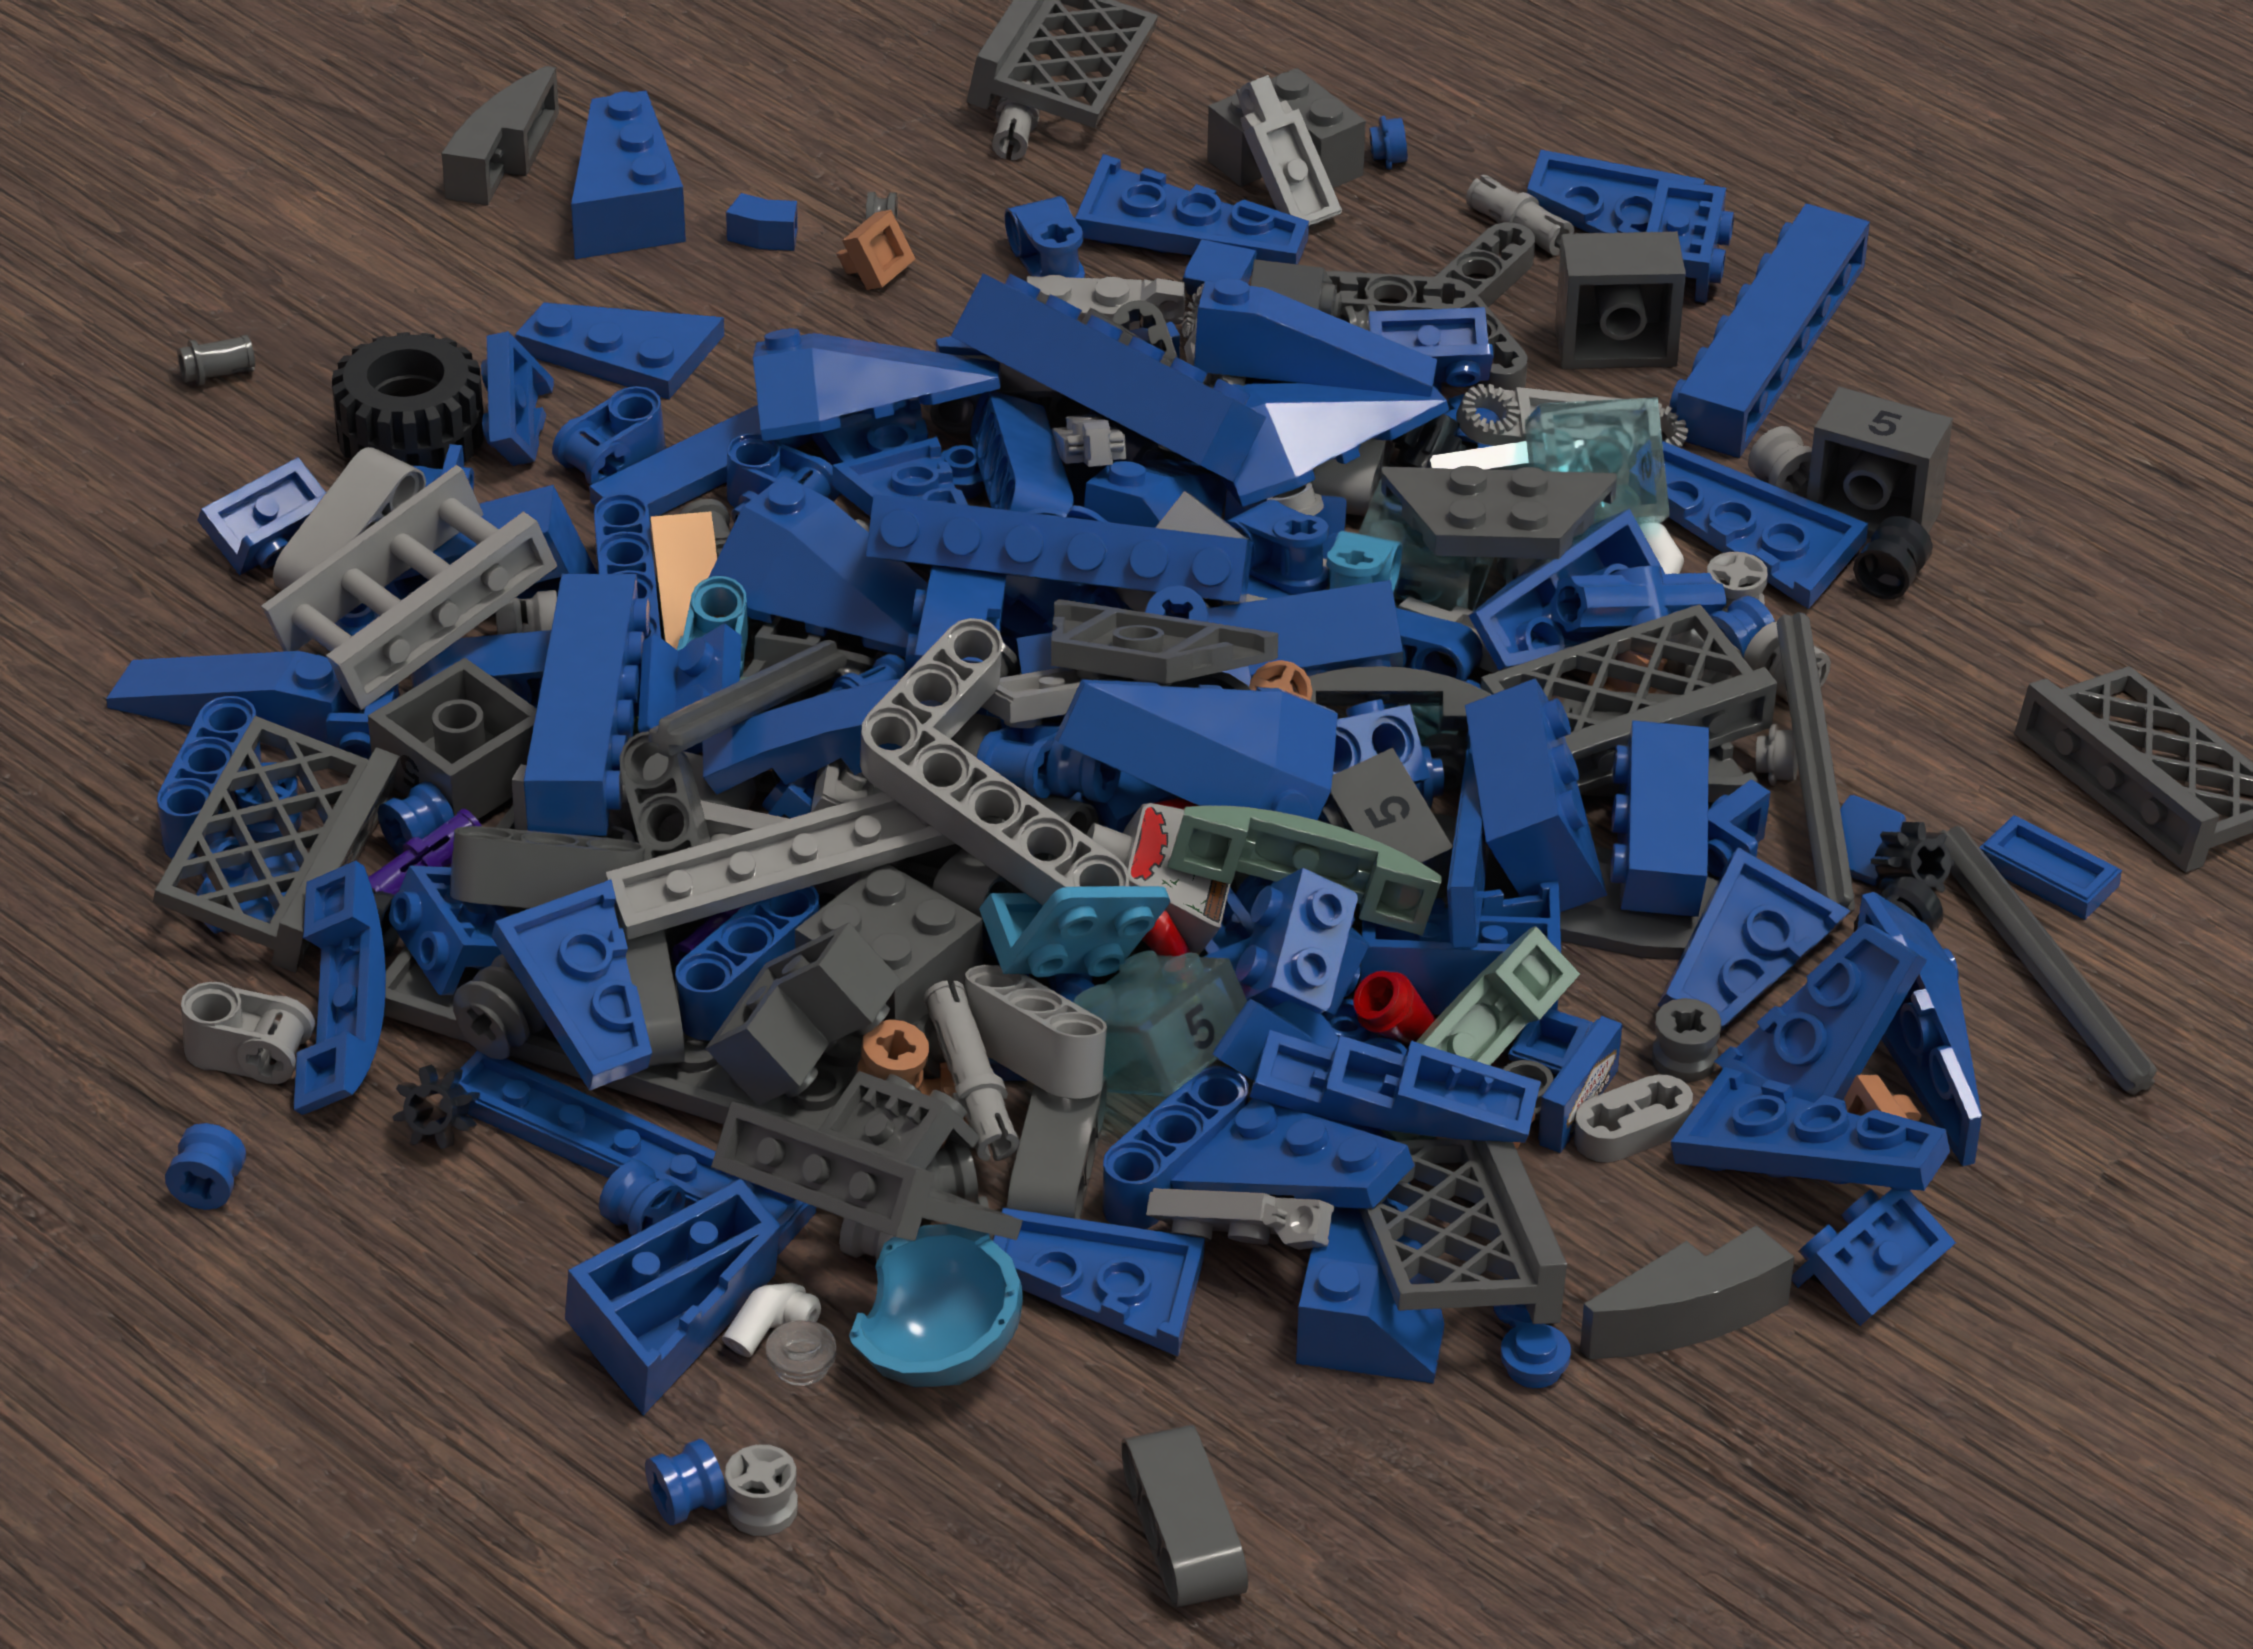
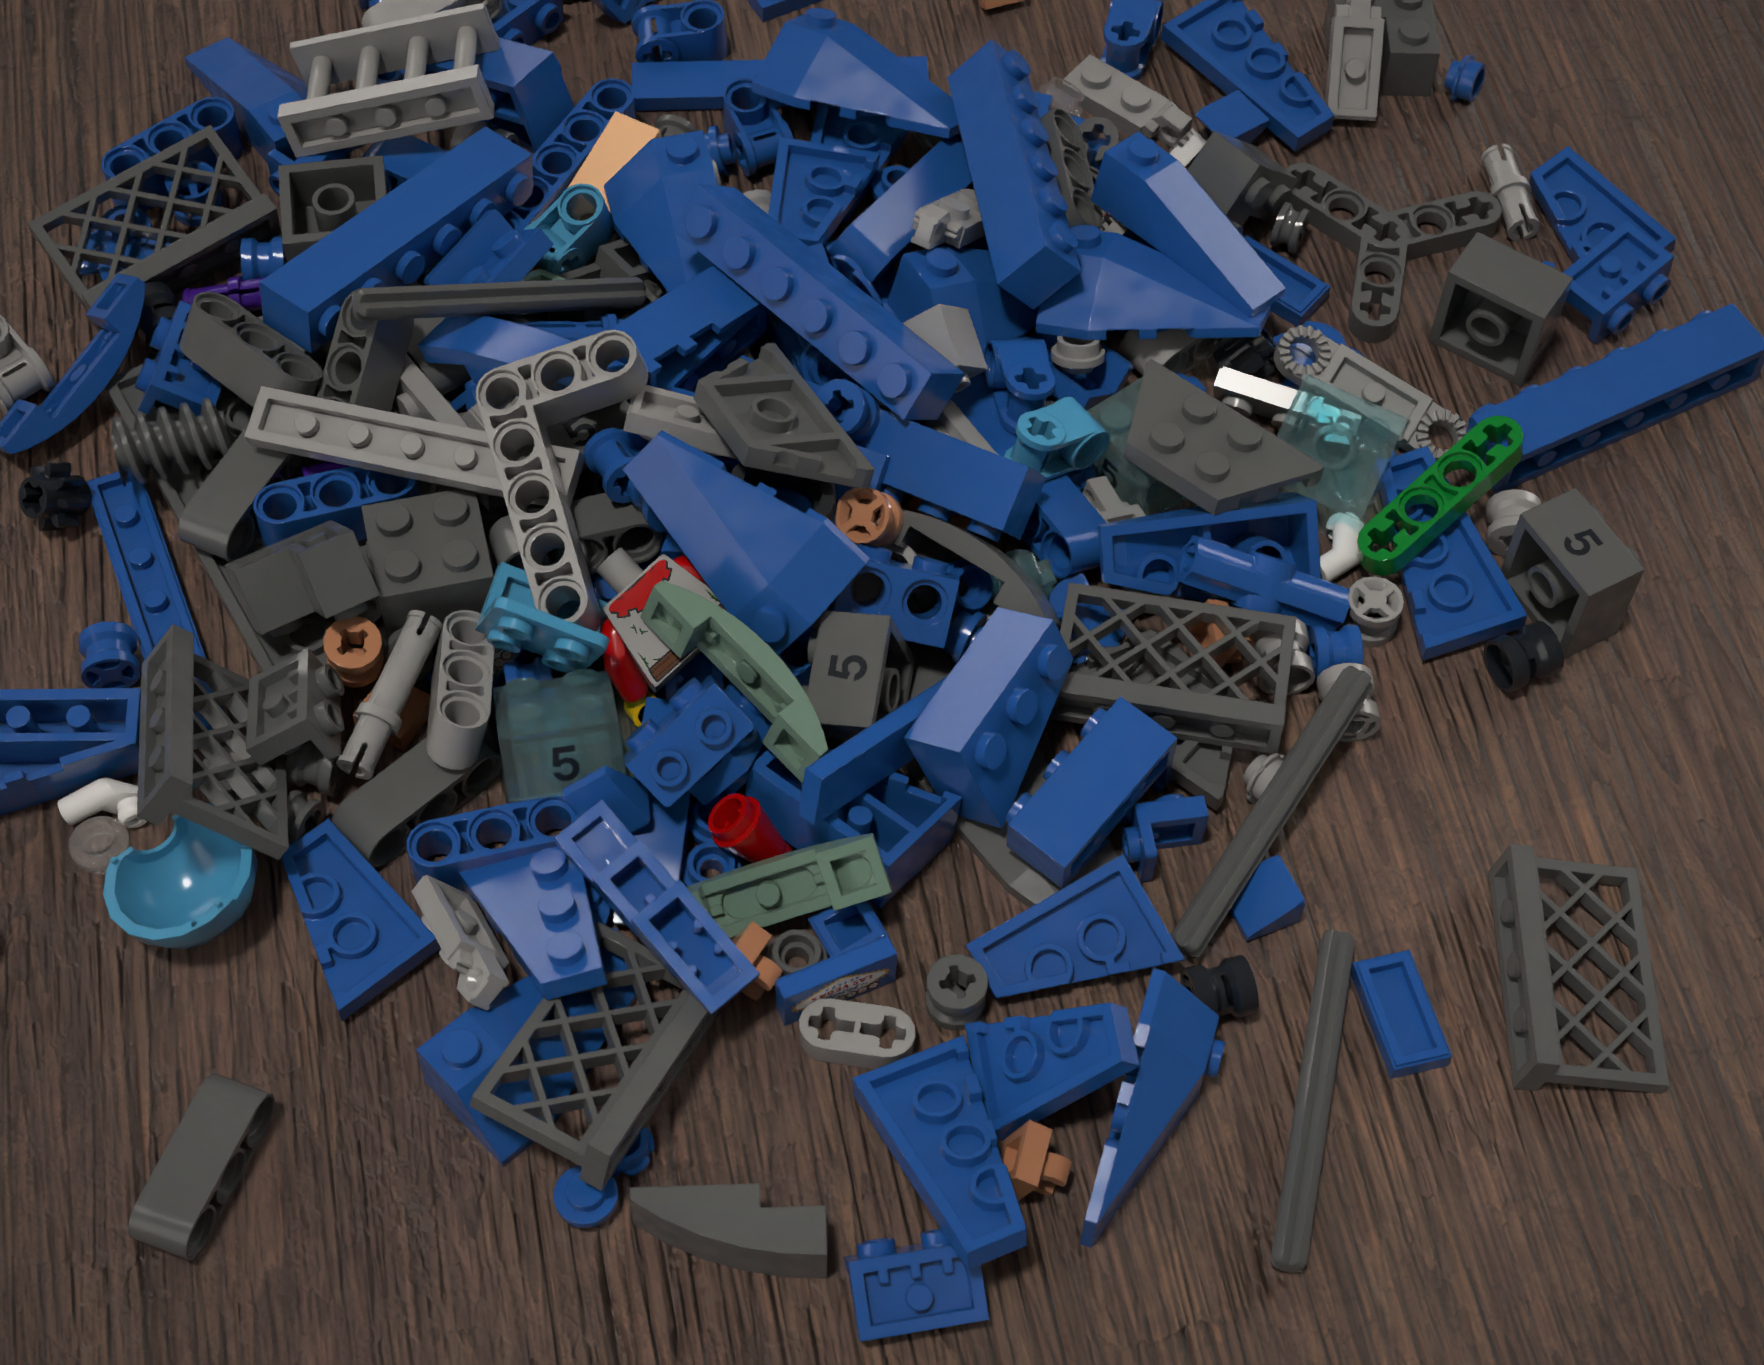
camera: 35 degrees right, 15 degrees up
(580, 981) = (176, 461): blue wing -> none
(1450, 335) = (1320, 270): blue bracket -> none
(1719, 463) = (1446, 499): none -> green beam
(1913, 855) = (1281, 961): black gear -> none

